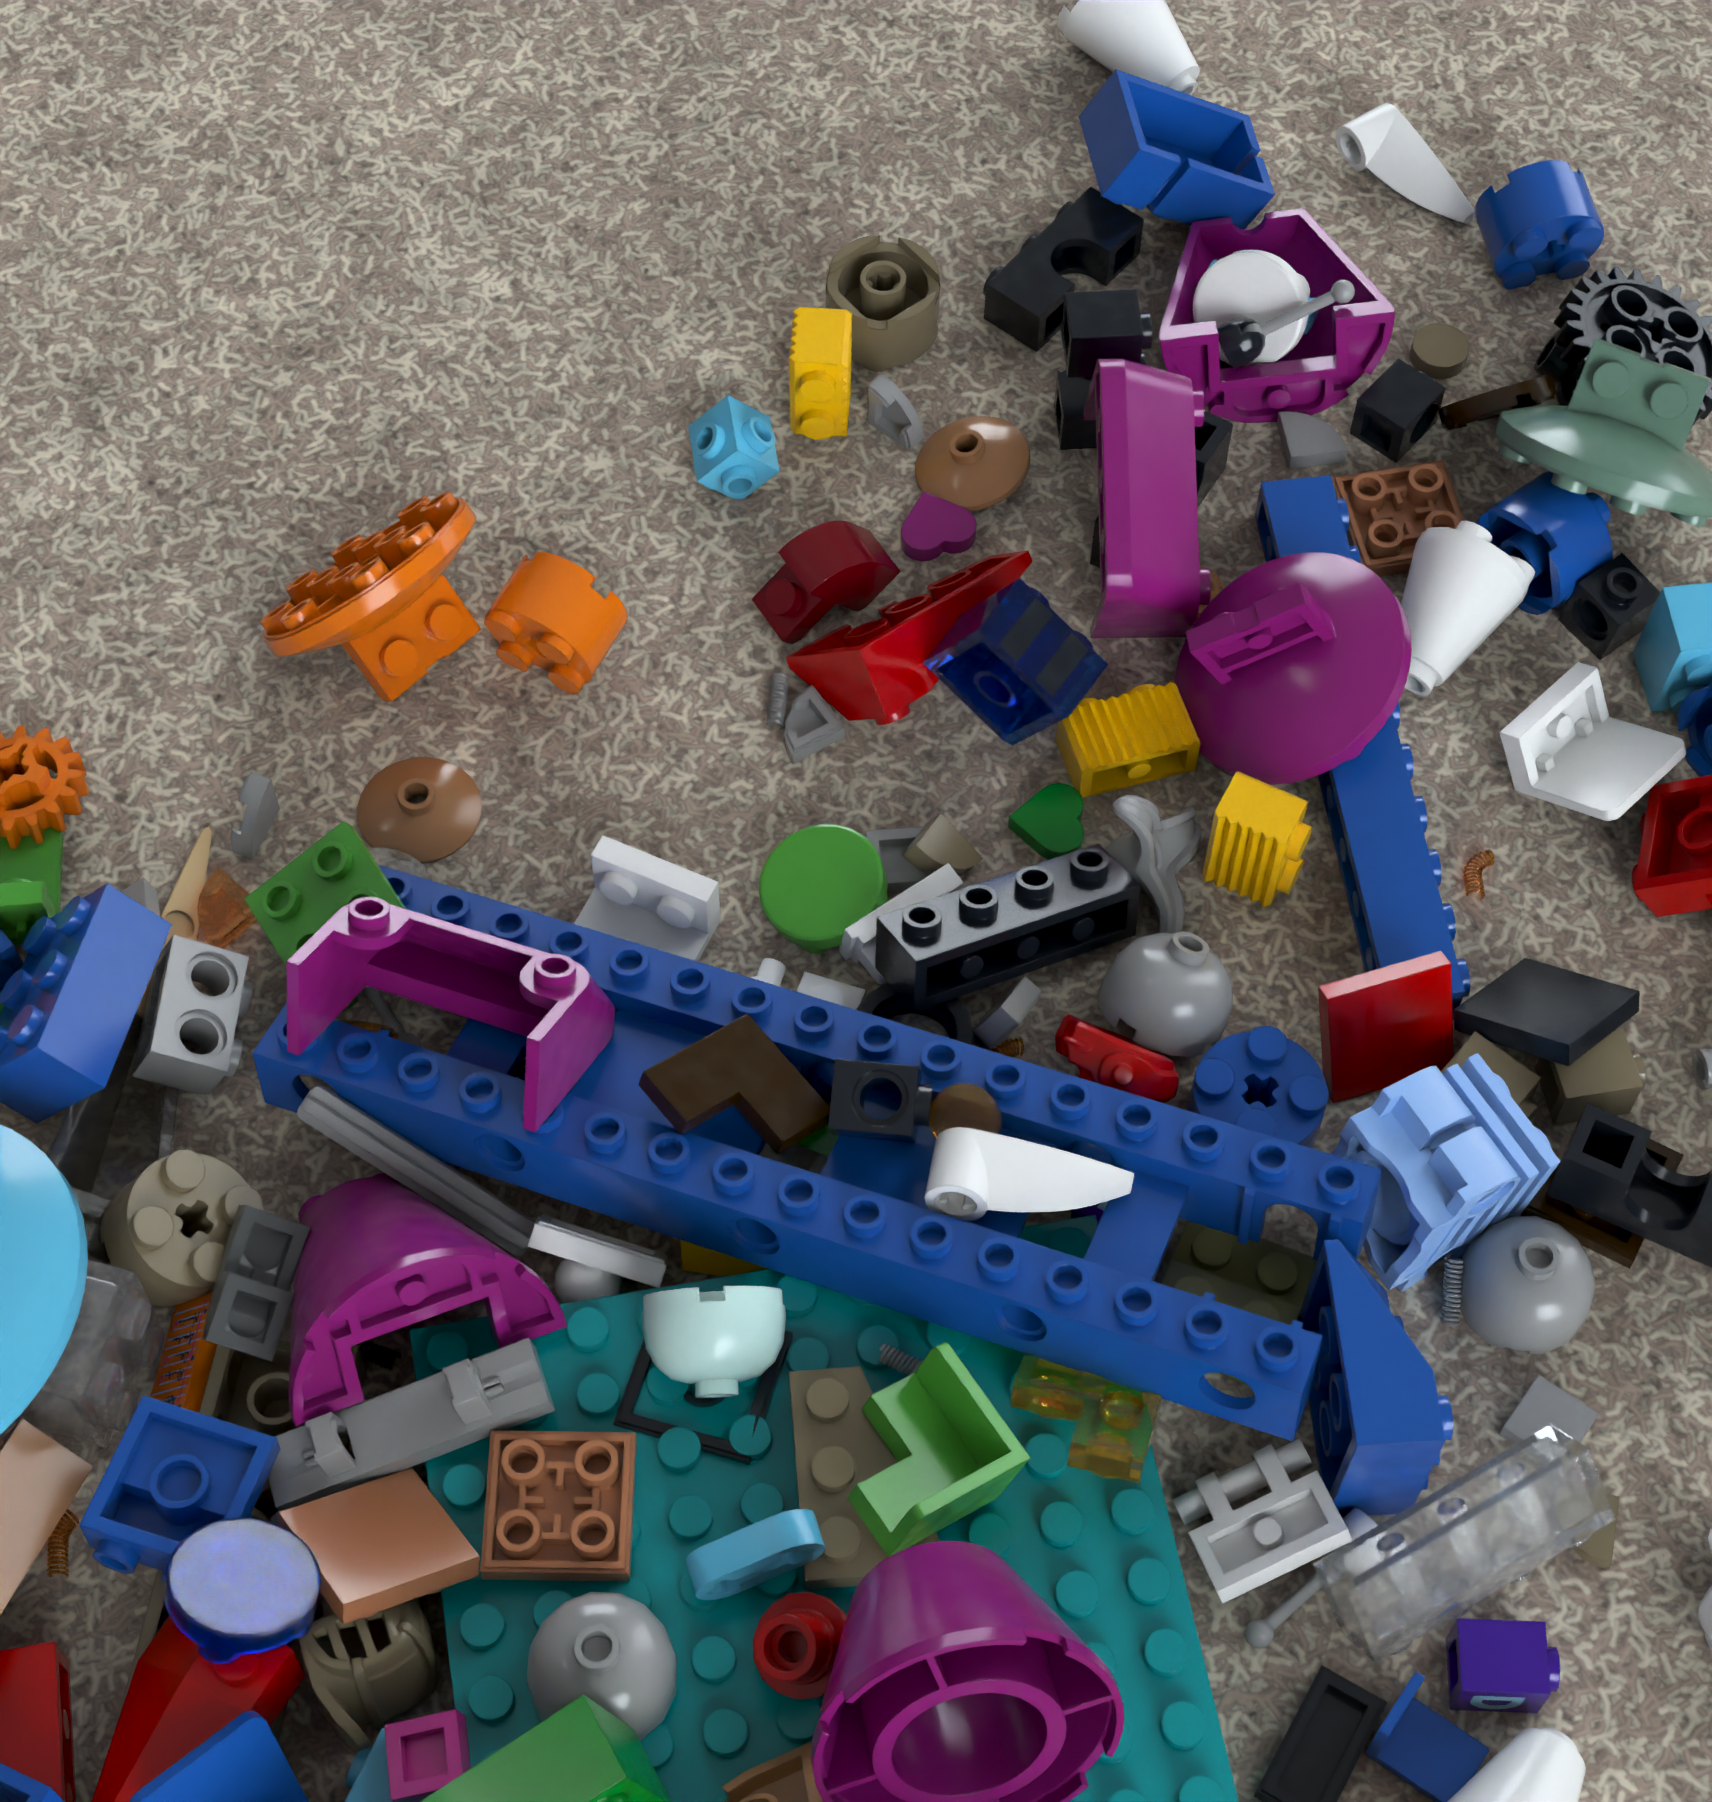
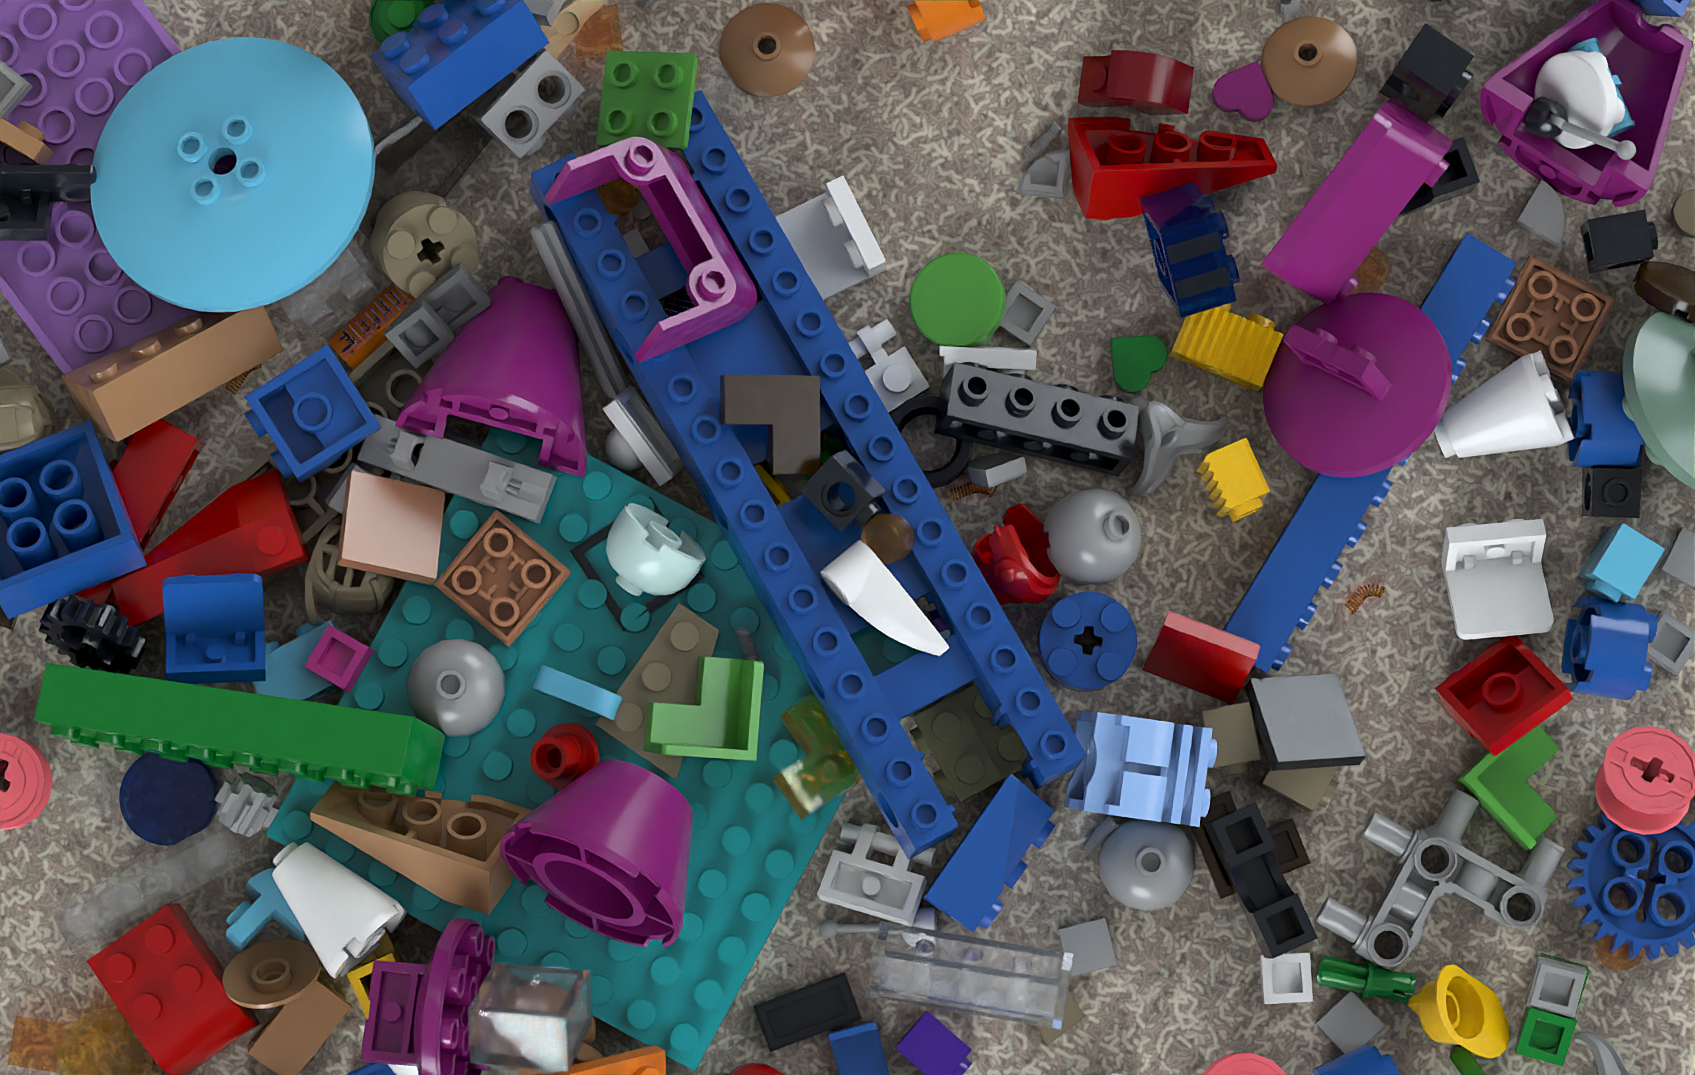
camera: 40 degrees right, 25 degrees up
(241, 1588) = (298, 505): clear blue tile -> none
(941, 844) = (1048, 331): dark tan tile -> none

